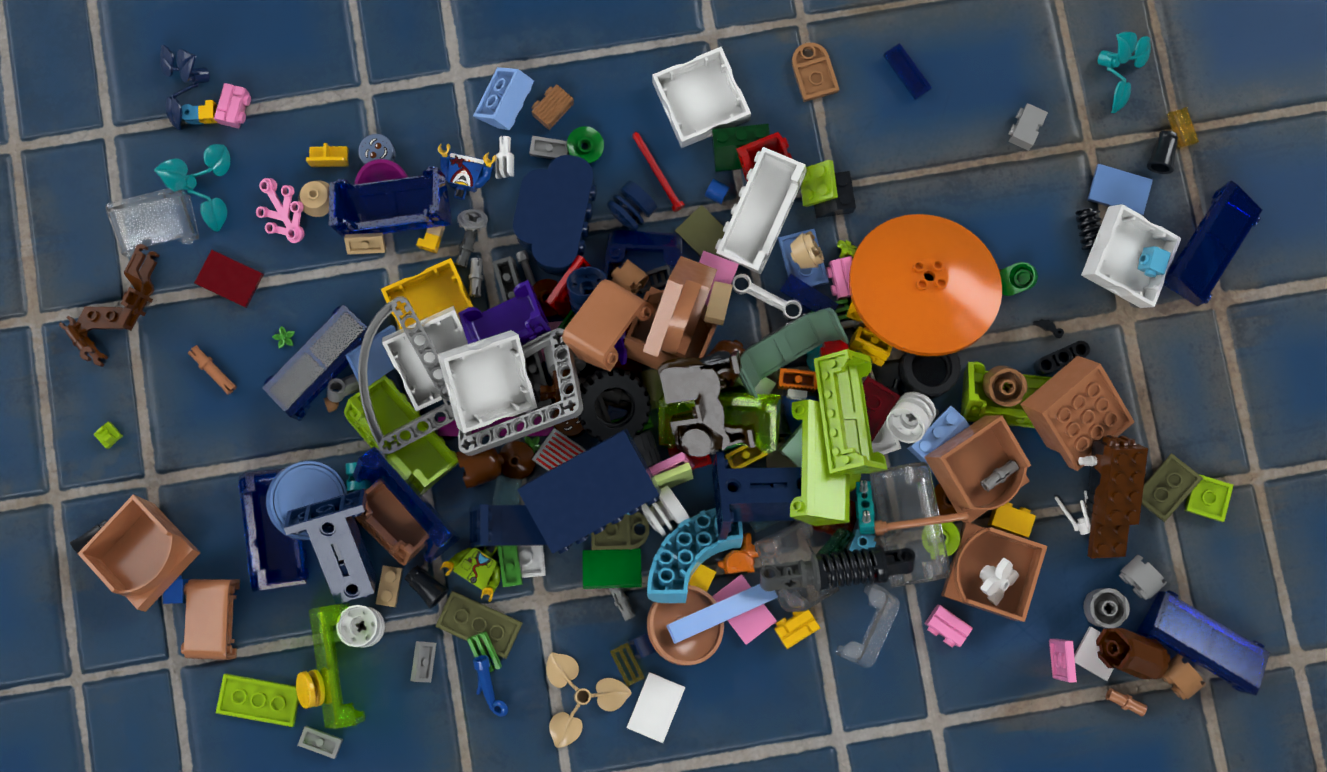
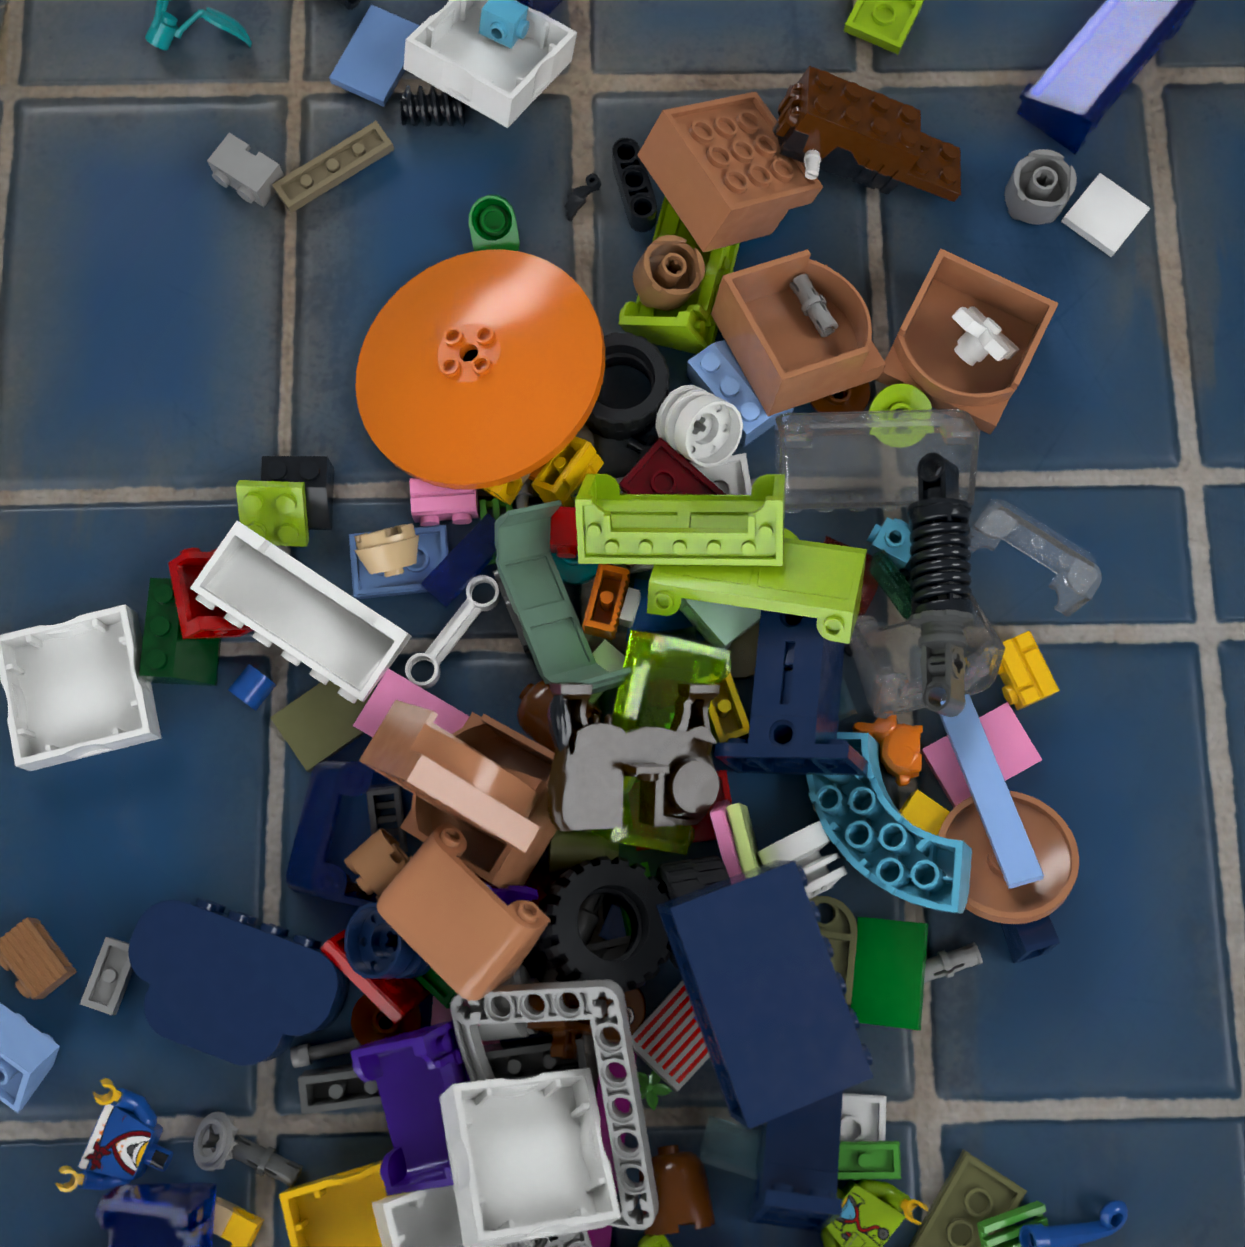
camera: 80 degrees left, 5 degrees down
(475, 277) = (324, 1150): light grey pin -> none
(505, 159) = (115, 1062): white arm -> none
(523, 453) = (663, 1106): reddish brown dish -> none
(587, 136) = (105, 898): green dish -> none
(610, 694) = (1106, 1007): tan plant -> none
(613, 652) = (1028, 979): clear yellow tile -> none
(635, 202) = (245, 835): dark blue wheel -> none
(656, 707) = (1133, 931): white tile -> none
(677, 205) = (262, 759): red bar -> none
(718, 303) = (457, 710): tan tile -> none
(814, 73) = (77, 491): medium nougat tile -> none
(846, 248) = (395, 486): lime plant -> none
(865, 515) = (867, 526): teal piece -> none
(883, 527) = (875, 500): nougat piece -> none
(907, 71) = (110, 339): clear blue plate -> none
(948, 626) = (1043, 428): bright pink brick -> none
(1012, 520) = (887, 299): yellow brick -> none
(1040, 177) = (333, 167): none -> dark tan plate
(1062, 660) = (1121, 259): bright pink tile -> none
(1084, 523) = (902, 197): white plant -> none
(1126, 702) = (1185, 186): nougat pin -> none
(1132, 653) = (1117, 159): reddish brown brick -> none
(1143, 577) = (999, 125): light grey brick -> none
(1169, 487) = (861, 58): olive tile -> none
(1183, 678) = (1158, 97): medium nougat brick -> none

